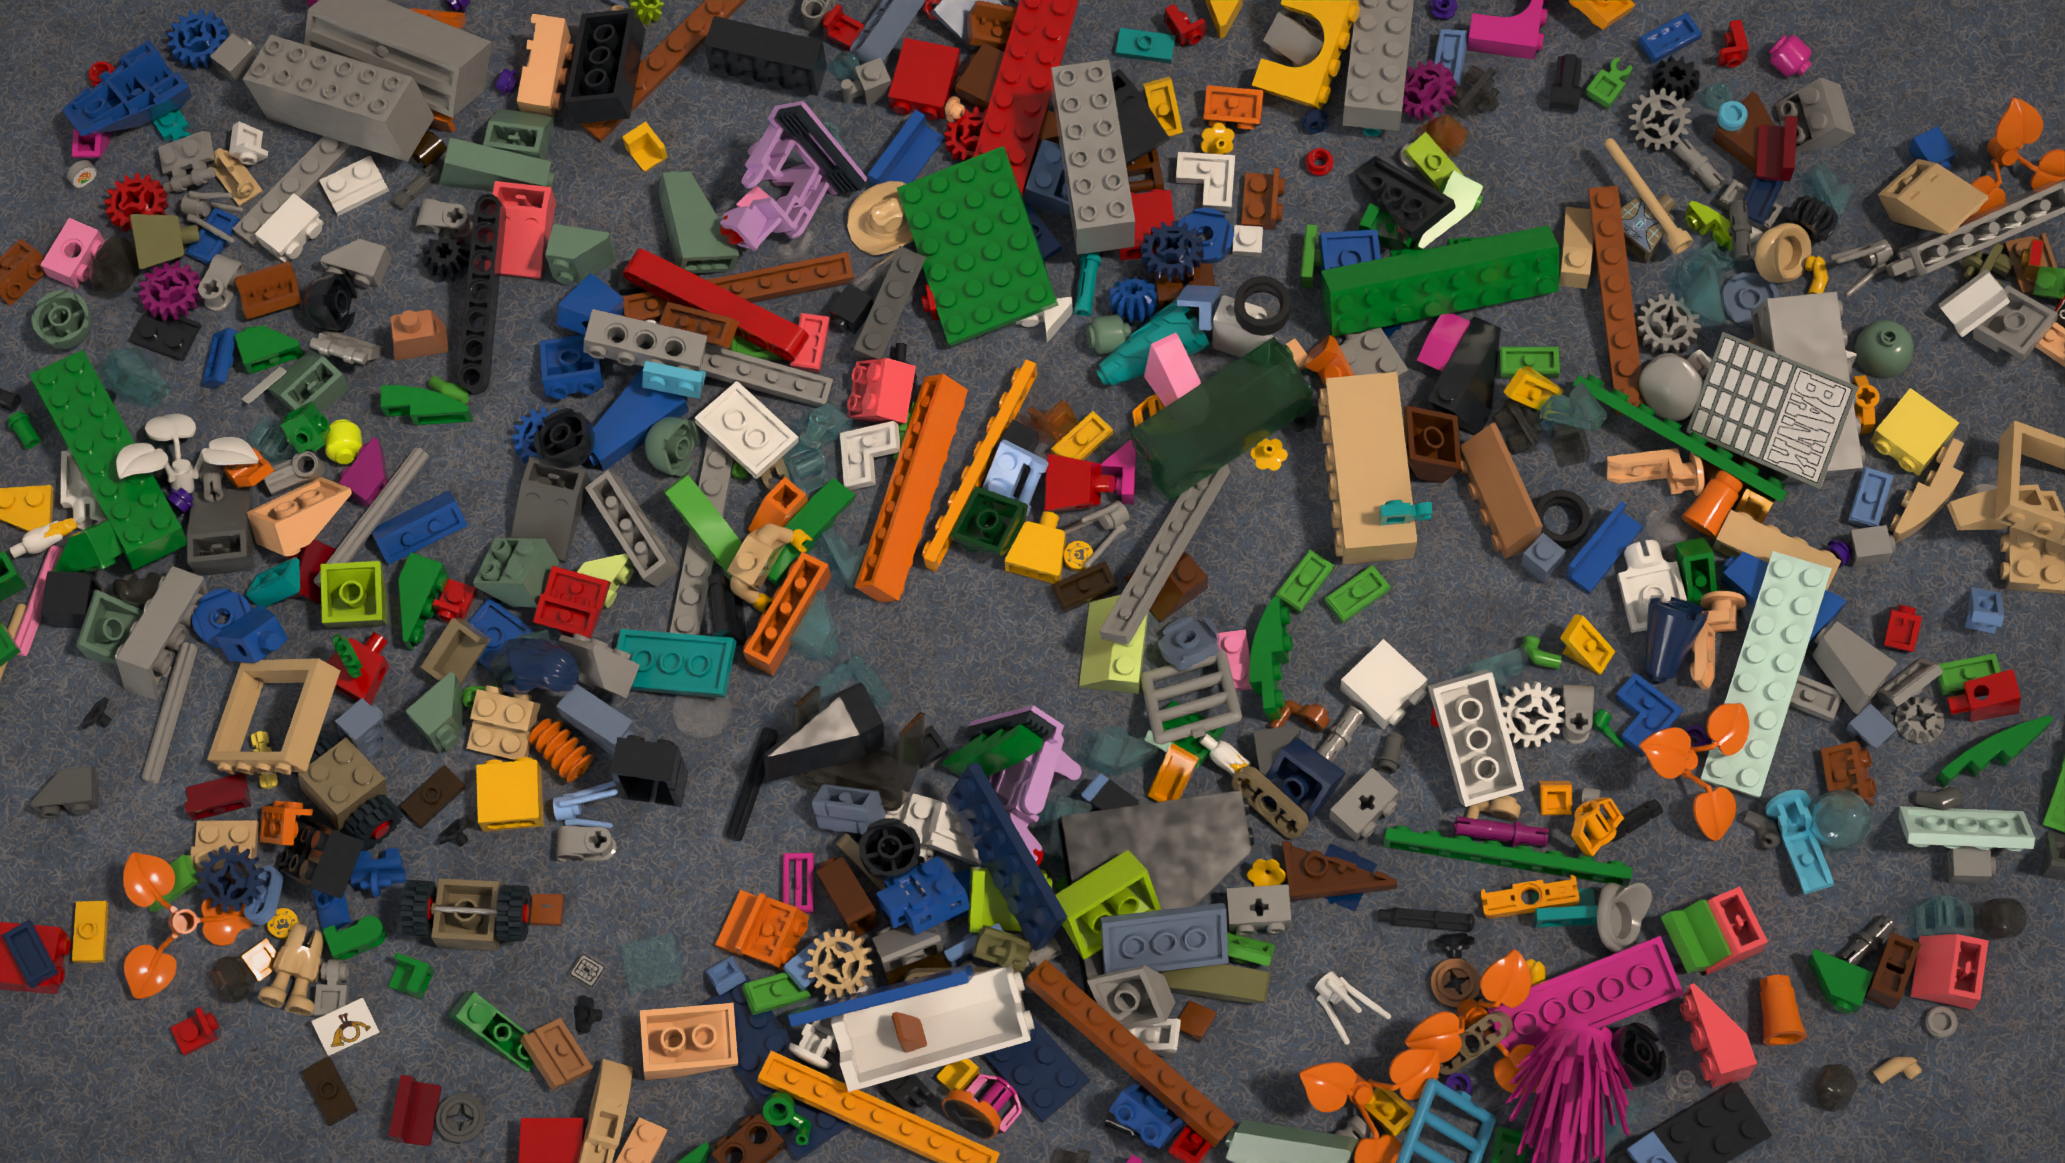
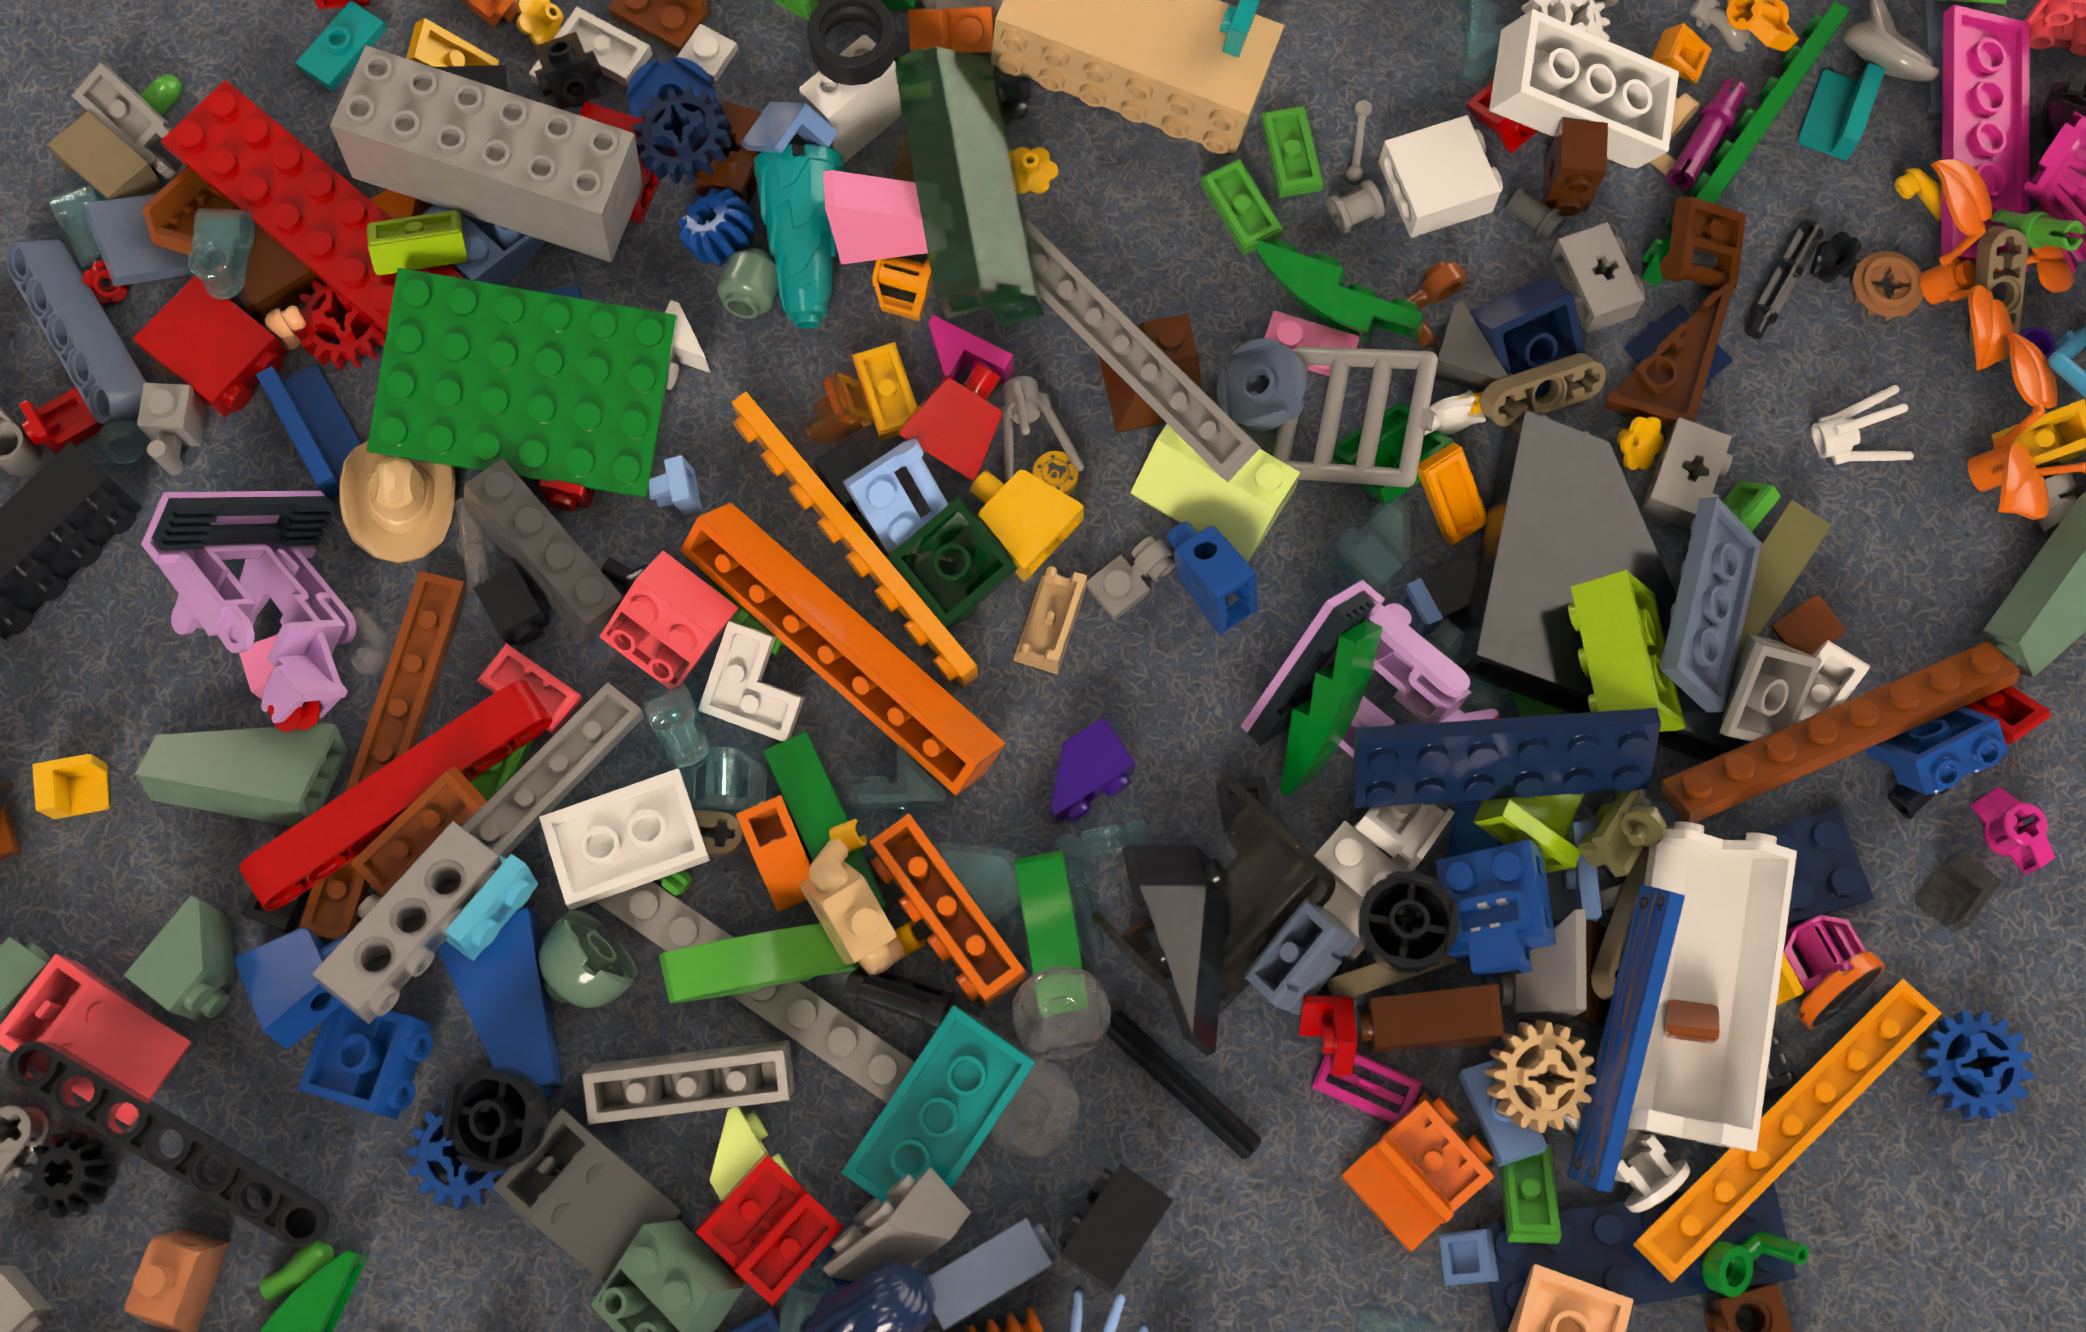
camera: 70 degrees left, 5 degrees up
(759, 699) = (1061, 1012): none -> clear tile
(798, 671) = (1047, 911): none -> green slope
(817, 846) = (1334, 1022): none -> red bracket
(906, 651) = (1089, 766): none -> dark purple slope
(965, 358) = (676, 486): none -> light blue tile
(975, 51) = (221, 250): none -> clear light blue piece
(986, 595) = (1051, 620): none -> tan hinge
(1029, 147) = (417, 242): none -> lime slope
(1029, 621) = (1121, 585): none -> light grey plate
(1056, 662) = (1211, 571): none -> blue torso
(1084, 587) = (1107, 486): dark brown plate -> none
(1086, 283) = (642, 267): teal pin -> none
(1181, 170) = (568, 71): none -> black brick
(1339, 646) = (1356, 206): none -> light grey bush
(1341, 733) = (1478, 261): light grey pin -> none
(1413, 624) = (1363, 110): none -> light grey hinge
(1421, 850) = (1708, 230): none -> reddish brown plate
(1425, 756) = (1575, 165): none -> reddish brown brick
(1509, 901) = (1820, 117): light orange piece -> none
(1519, 1041) = (2042, 229): none -> bright green pin

